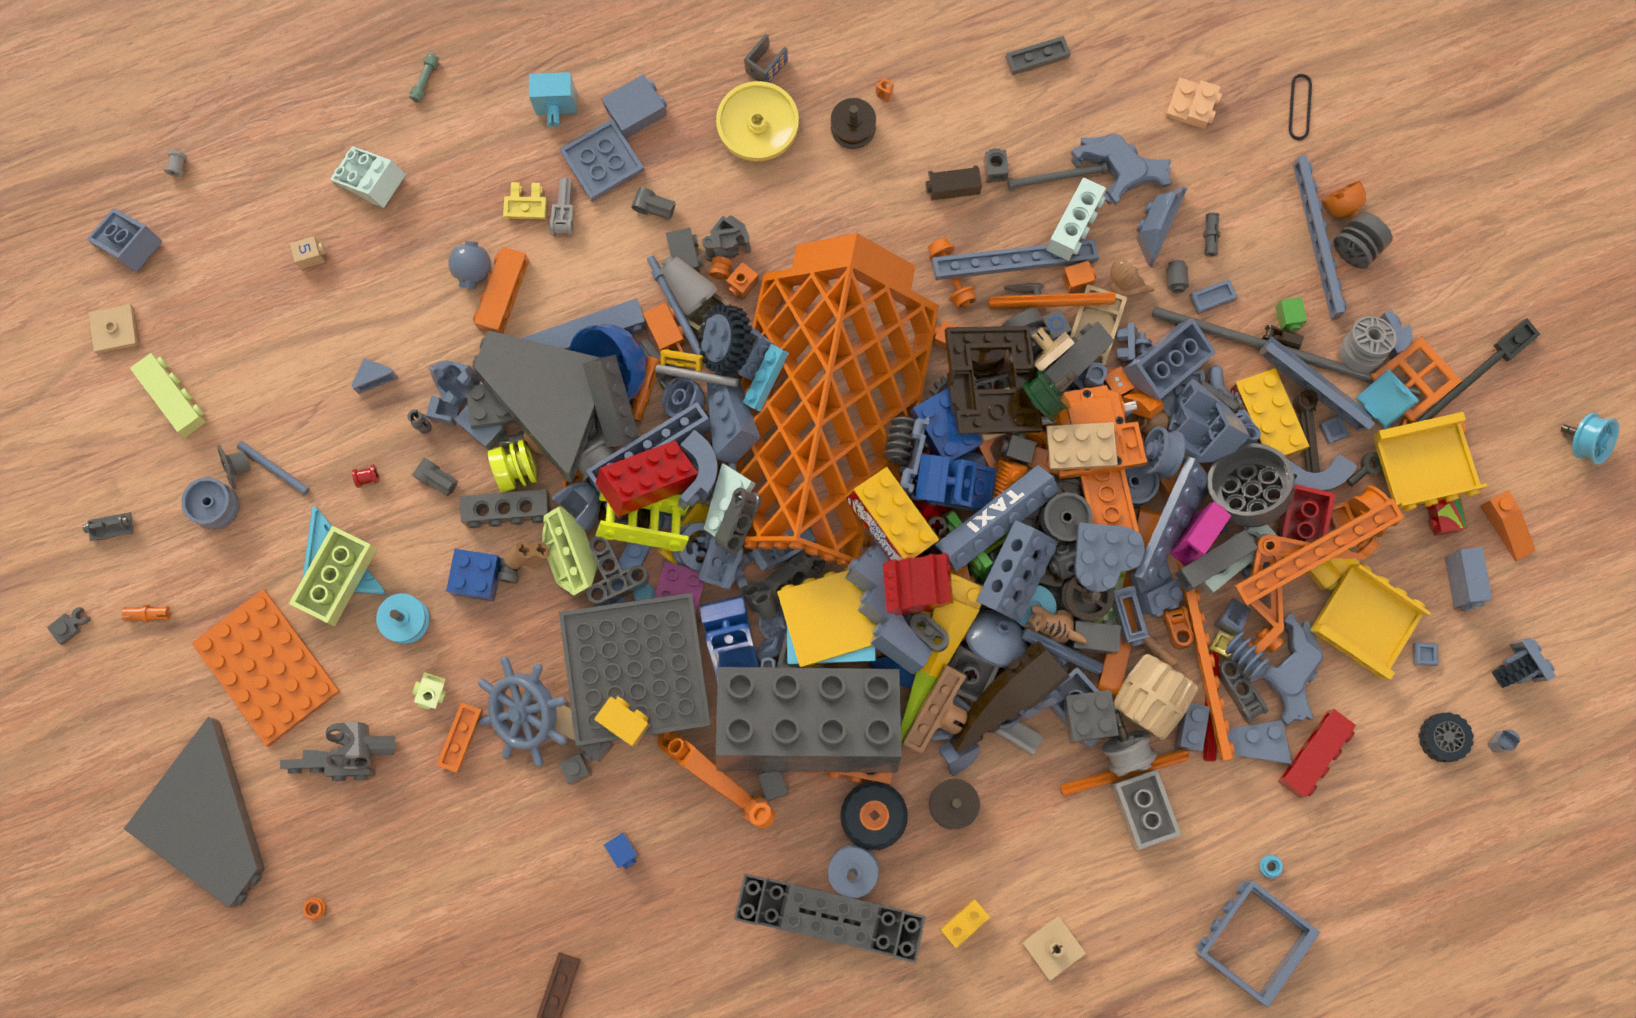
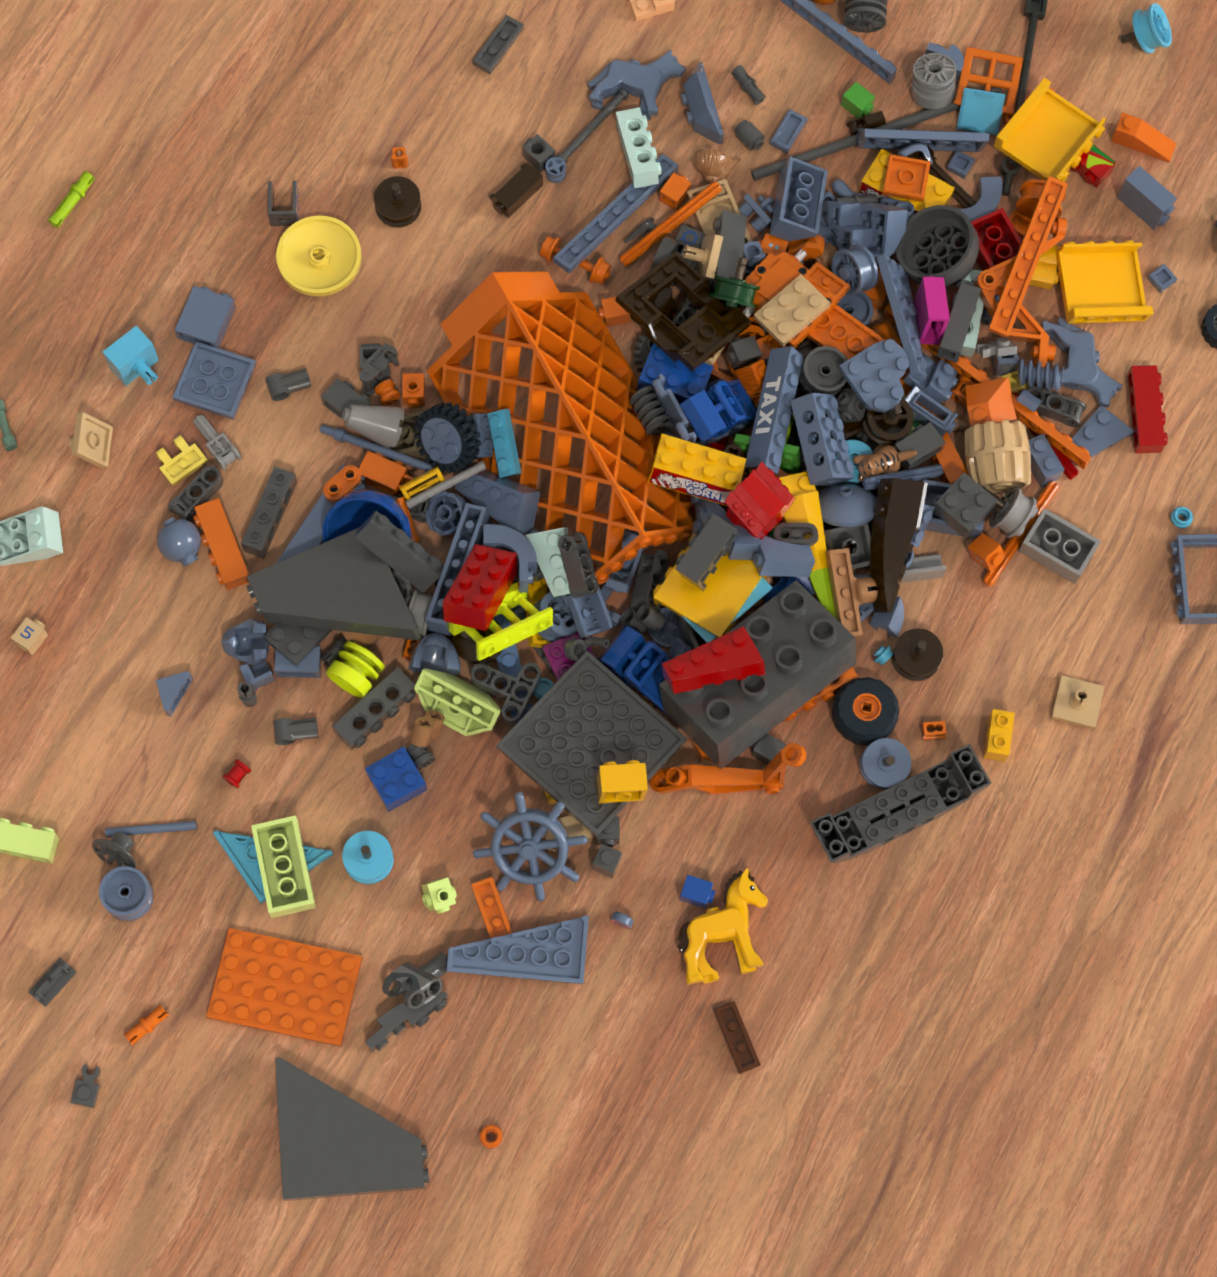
camera: 45 degrees left, 5 degrees down
(463, 798) = (539, 953): none -> sand blue wing
(472, 137) = (91, 440): none -> tan tile
(503, 237) = (187, 502): none -> dark grey piece
(548, 824) = (622, 920): none -> sand blue tile
(555, 293) = (269, 512): none -> dark grey brick
(618, 894) = (722, 926): none -> yellow animal
(622, 314) = (343, 483): none -> orange plate
(691, 586) = (577, 647): none -> dark grey plate
(768, 687) = (714, 662): none -> red wedge
(839, 590) = (706, 551): none -> dark grey wedge
(907, 874) = (936, 734): none -> orange piece
(927, 781) = (882, 654): none -> medium azure plate
(1000, 184) = (558, 165): none -> sand blue wheel
(1081, 766) = (986, 552): none -> orange brick
(1185, 647) = (990, 401): none -> orange slope
(1220, 670) = (1028, 400): none -> sand blue tile
(1233, 606) = (1001, 347): none -> light grey plate
(1274, 408) = (906, 178): none -> orange tile
(1303, 388) = (916, 147): none -> sand blue hair

